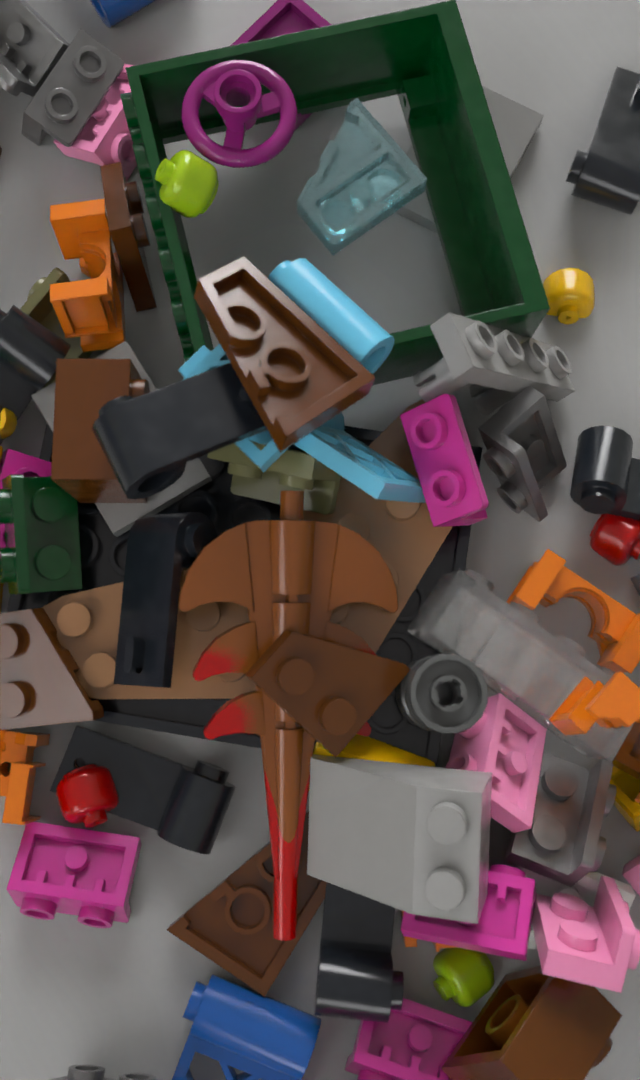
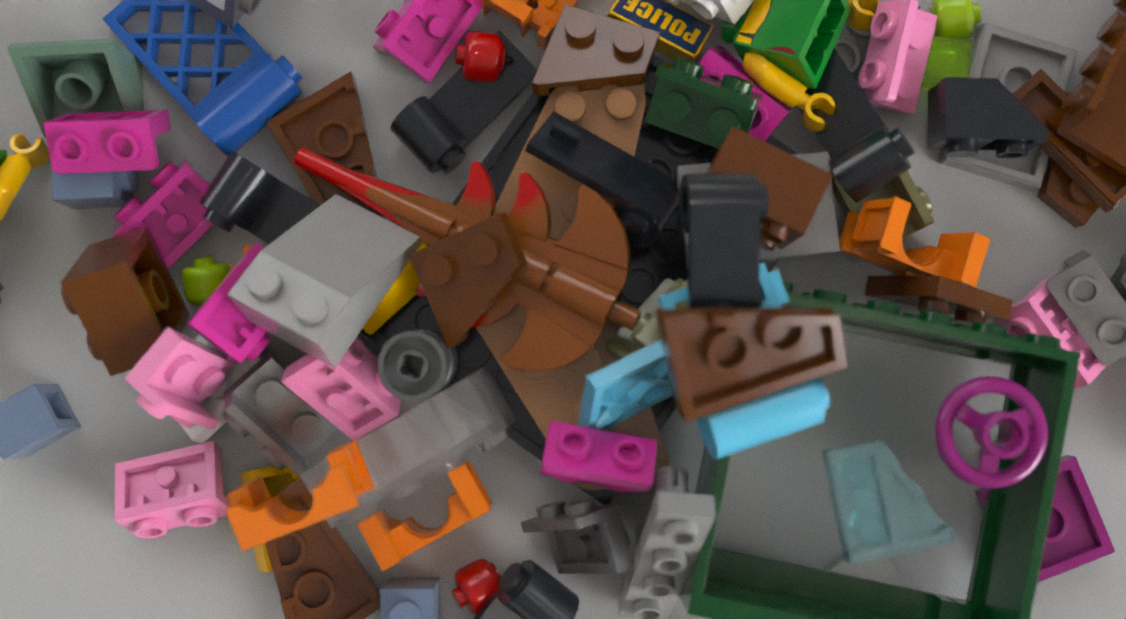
camera: 110 degrees right, 5 degrees up
(187, 183) = (945, 356): lime piece -> none

